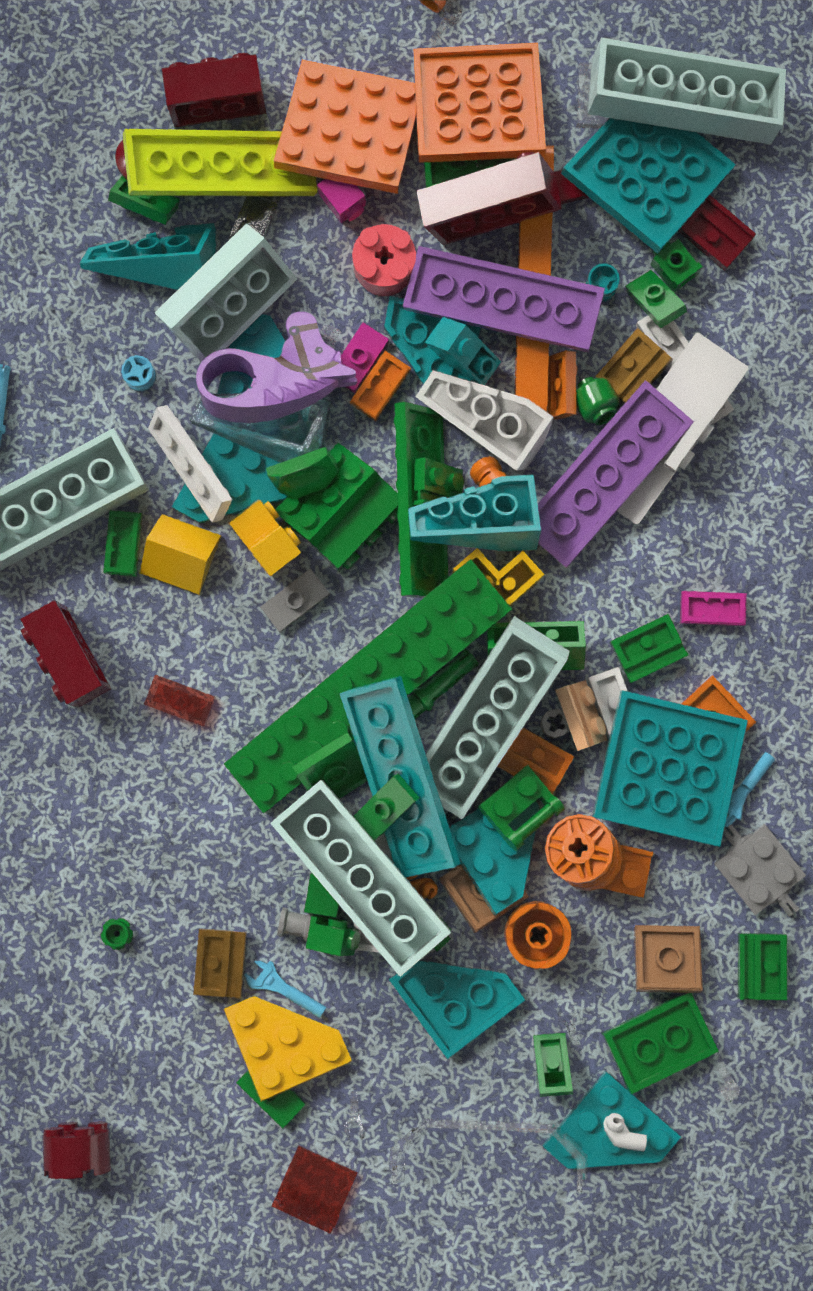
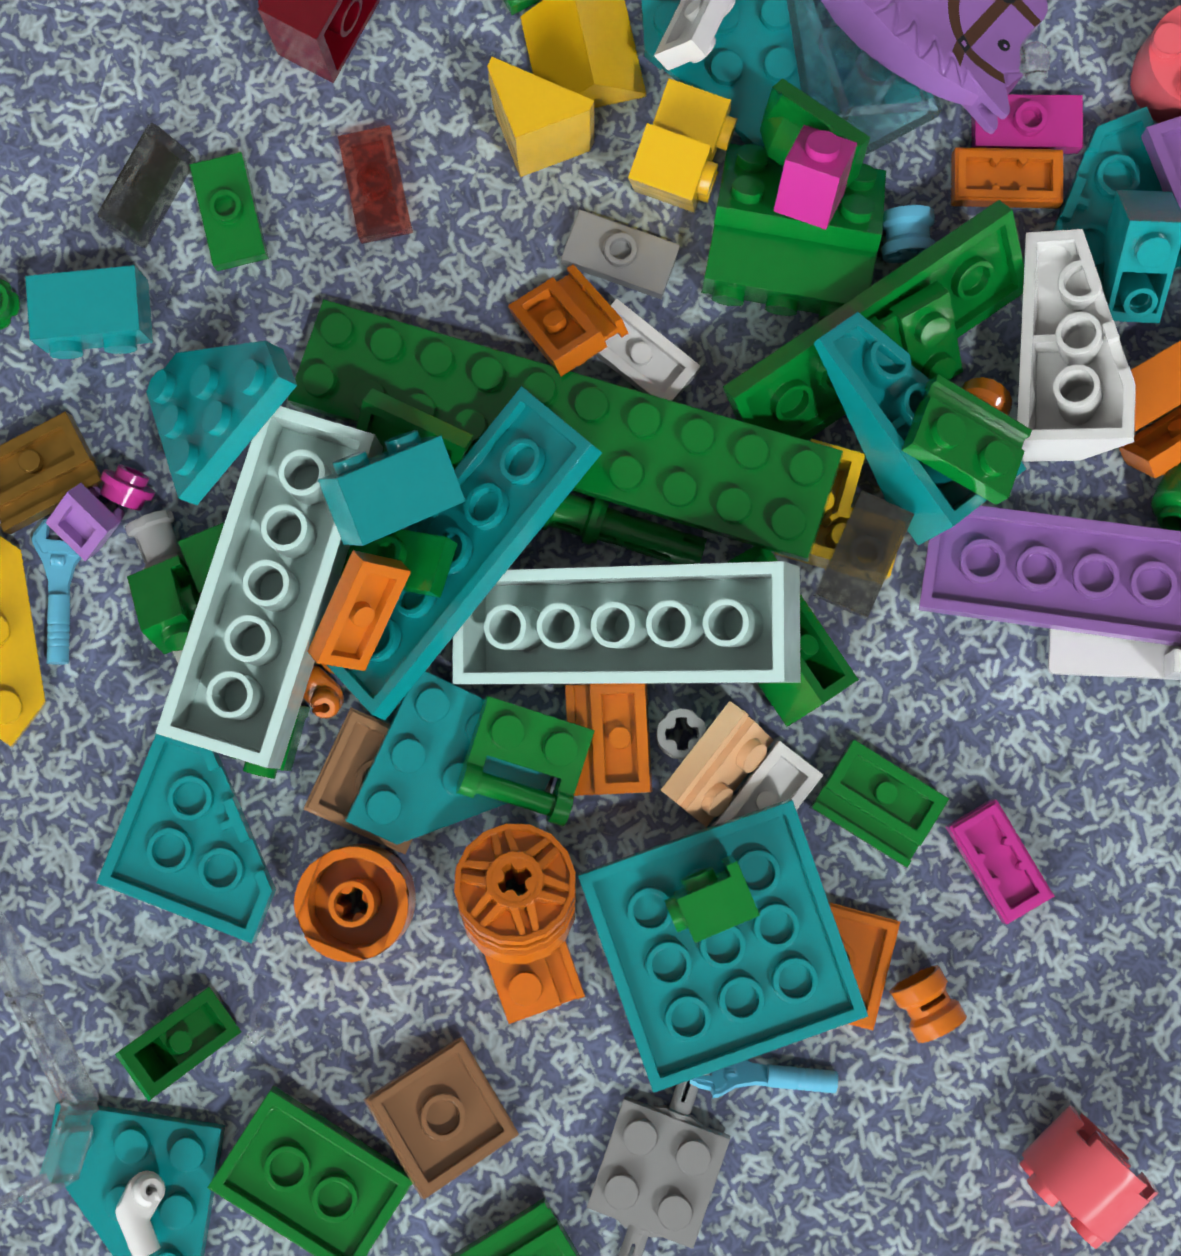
camera: 60 degrees right, 0 degrees up
(108, 817) = (146, 186): none -> clear smoke slope
(145, 783) = (229, 211): none -> green plate
(154, 885) = (89, 311): none -> teal brick
(205, 600) = (539, 117): none -> yellow slope
(253, 851) = (213, 406): none -> teal plate
(256, 922) = (126, 487): none -> dark pink plate
(261, 953) = (84, 520): none -> medium lavender tile
(314, 649) = (567, 320): none -> orange plate
(328, 486) = (815, 176): none -> dark pink brick
(353, 623) = (648, 358): none -> white plate
(354, 788) = (390, 489): none -> teal brick
(378, 453) = (907, 232): none -> medium azure wheel
(402, 841) = (358, 611): none -> orange plate
(503, 496) = (967, 440): none -> green plate
(526, 580) = (863, 554): none -> clear smoke plate
(646, 760) = (712, 901): none -> green brick
(760, 687) = (928, 1004): none -> orange wheel

